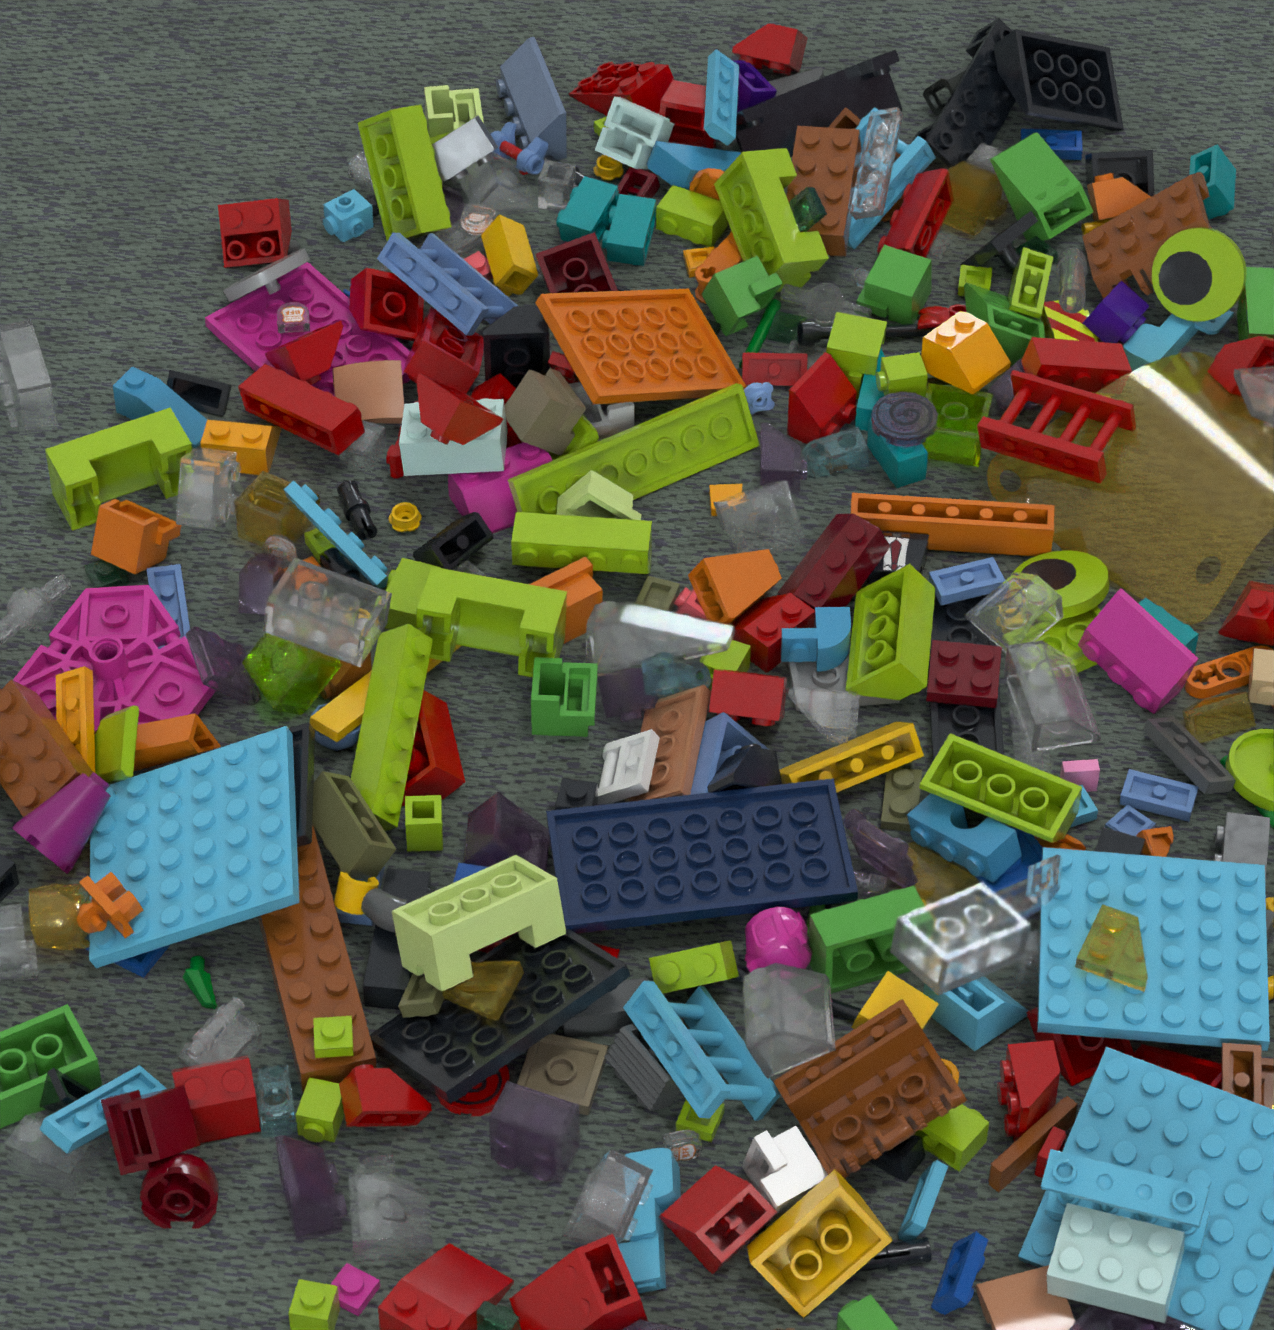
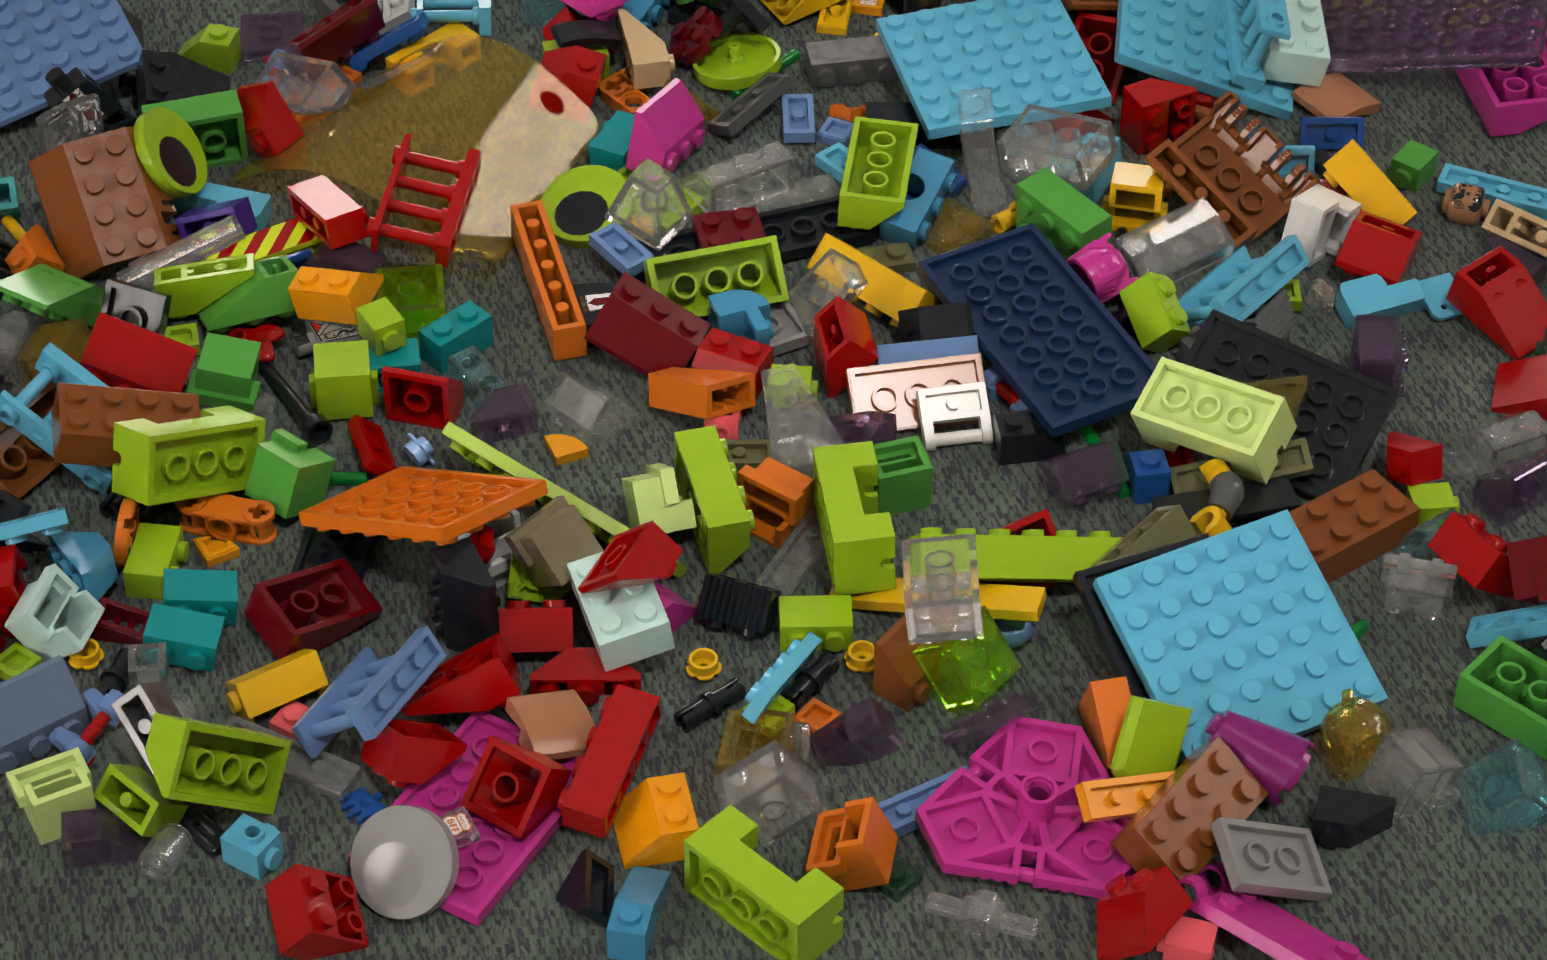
camera: 110 degrees left, 5 degrees down
(95, 914) = (1352, 656): orange hips -> none
(333, 1036) = (1380, 486): lime plate -> none
(424, 823) = (1095, 514): lime brick -> none
(476, 218) = (231, 716): clear tile -> none
(609, 1200) = (1419, 302): clear slope -> none
(666, 677) = (838, 397): clear light blue leg -> none
(807, 208) = (190, 403): clear green plate -> none
(876, 163) = (41, 379): clear plate -> none
(880, 849) = (974, 223): clear purple plate -> none
(904, 418) = (443, 310): tile -> none
(1081, 773) = (805, 158): bright pink tile -> none
(1115, 949) = (1020, 63): clear yellow wing -> none

